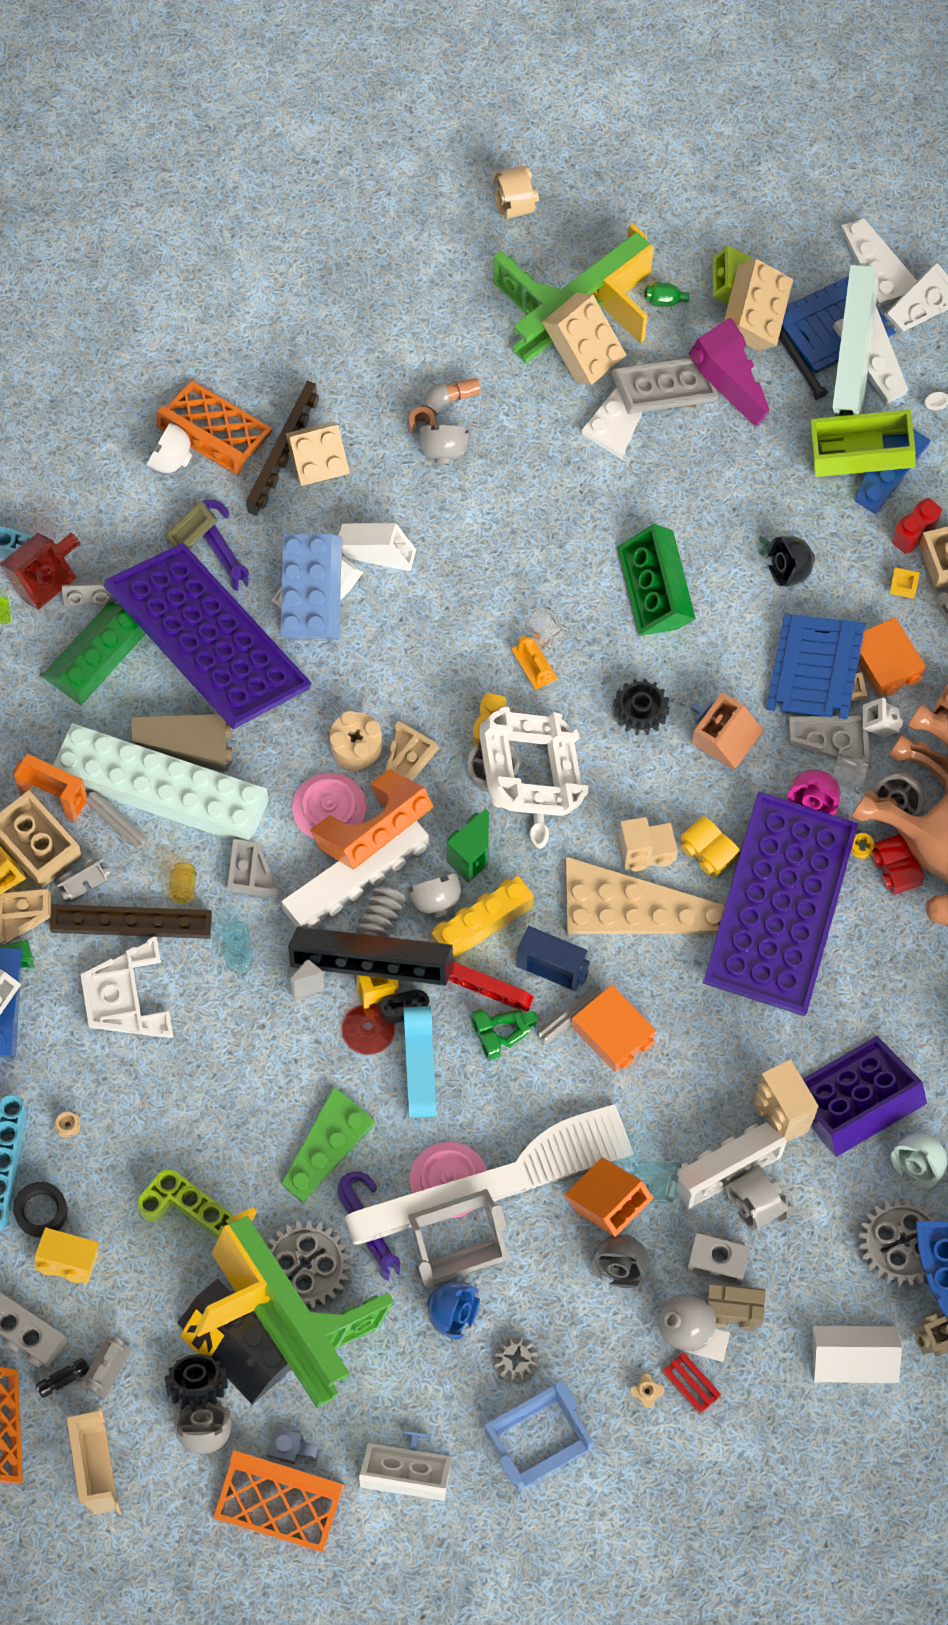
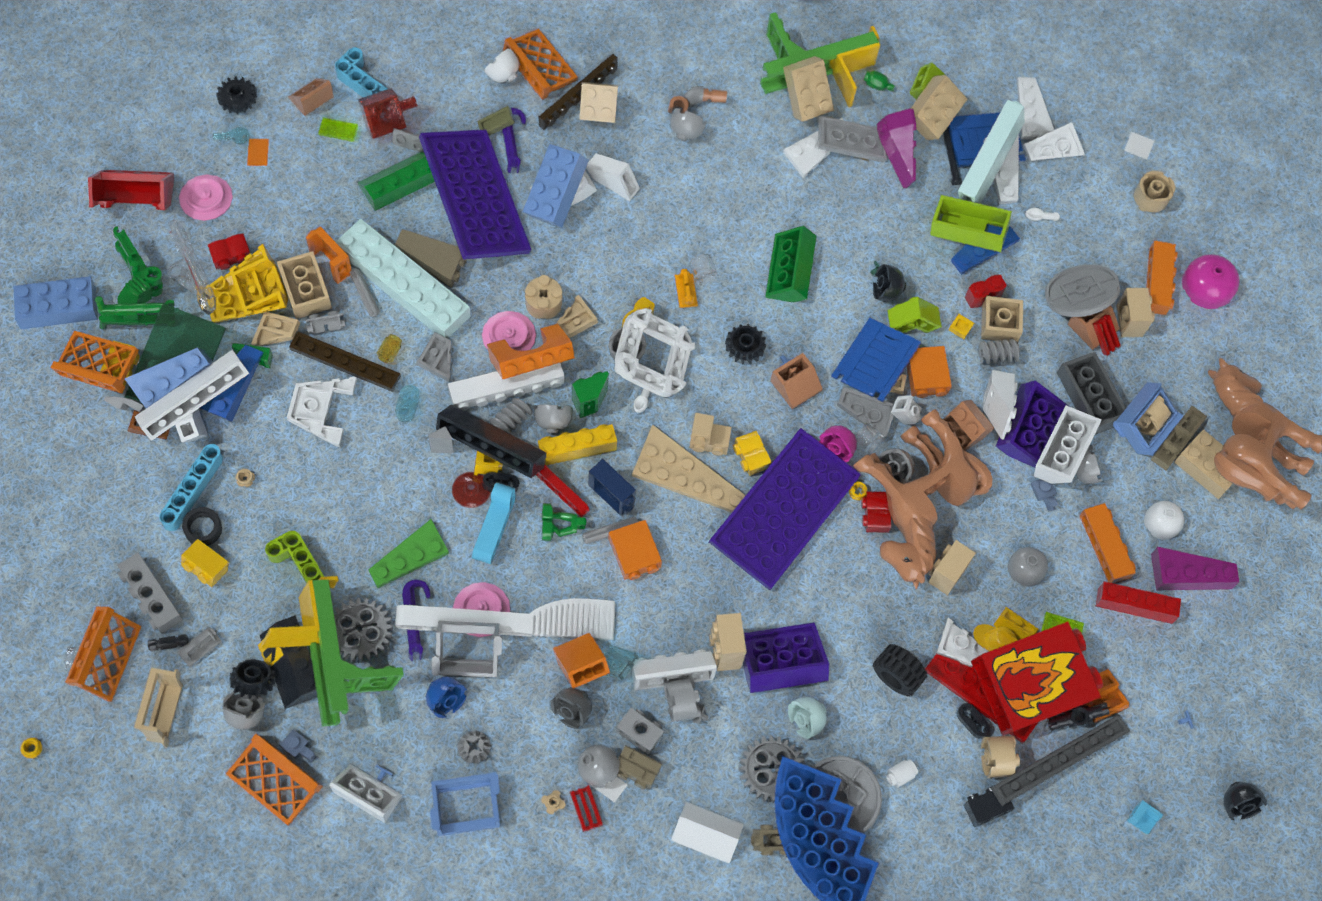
camera: 15 degrees right, 0 degrees up
(840, 590) = (914, 315): none -> lime brick

